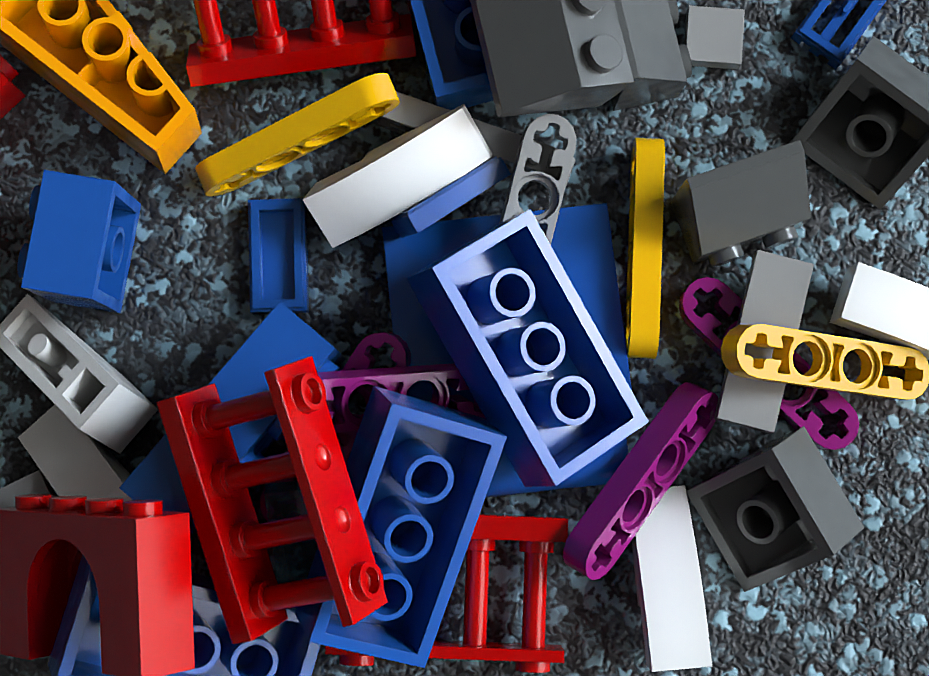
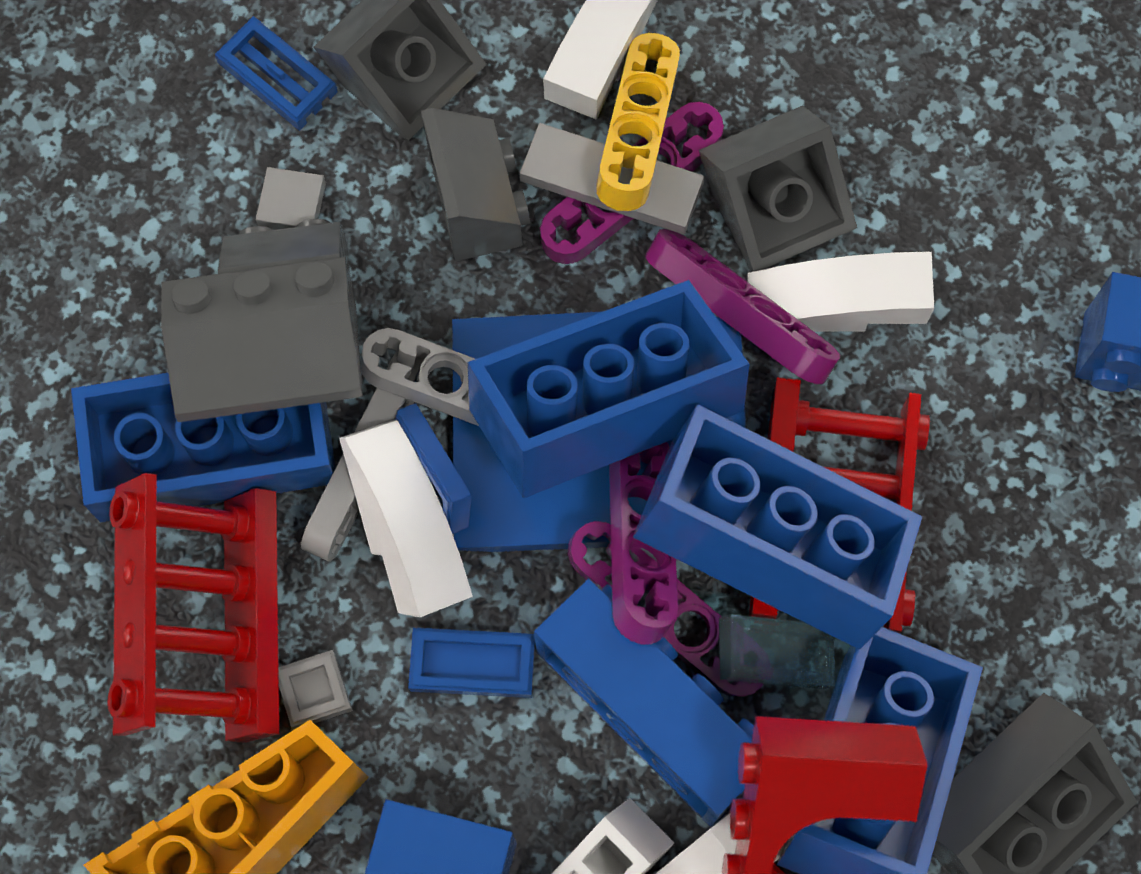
camera: 85 degrees left, 10 degrees down
(226, 517) = (784, 685): red fence -> none
(240, 112) = (313, 689): none -> light grey tile
(297, 134) = (348, 621): yellow beam -> none
(645, 248) = (500, 284): yellow beam -> none

